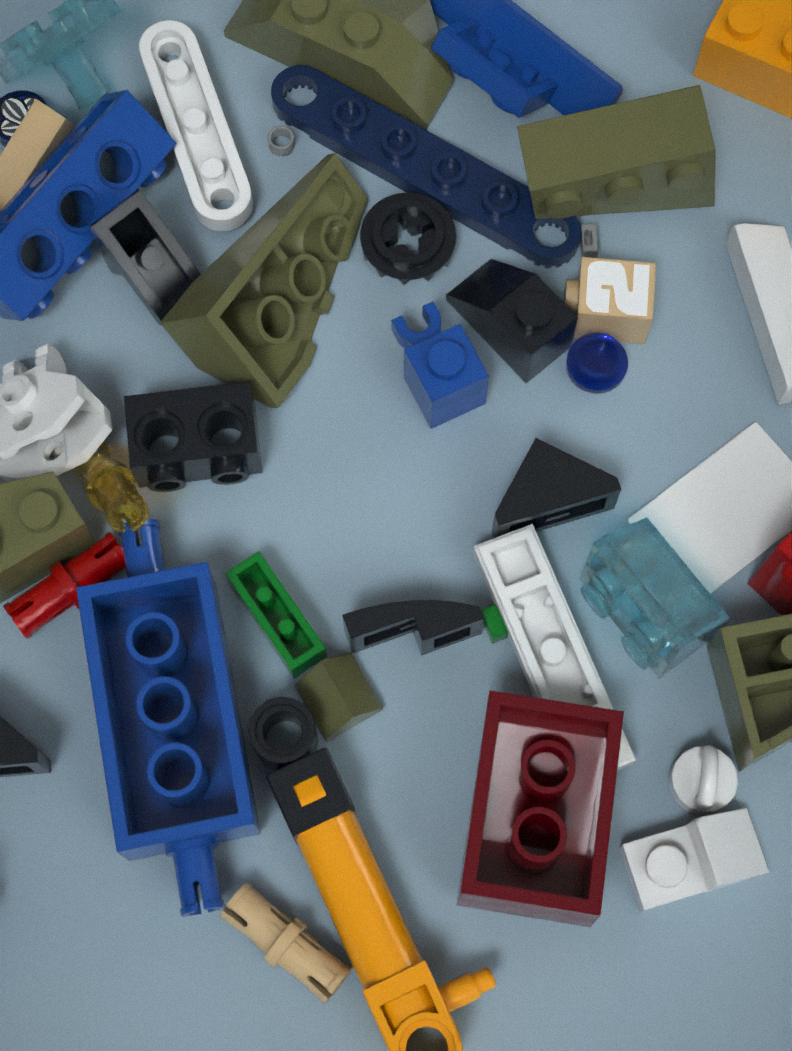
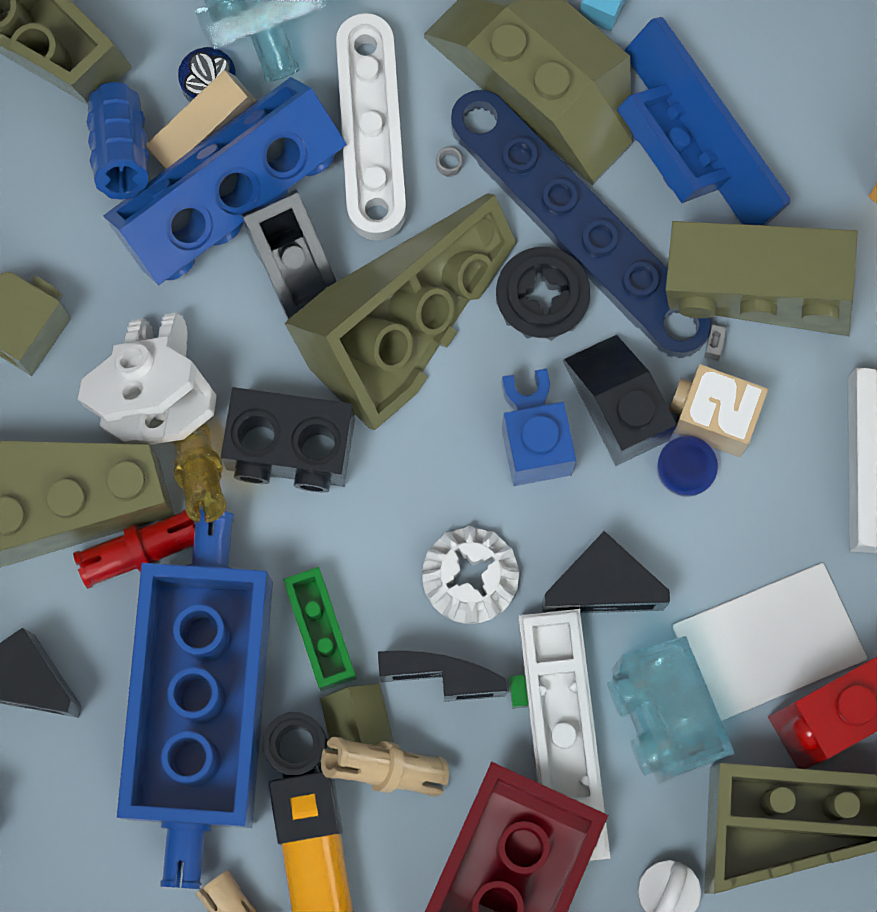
camera: 15 degrees right, 5 degrees up
(380, 729) = (384, 766): none -> tan pin
(413, 550) = (463, 602): none -> white gear

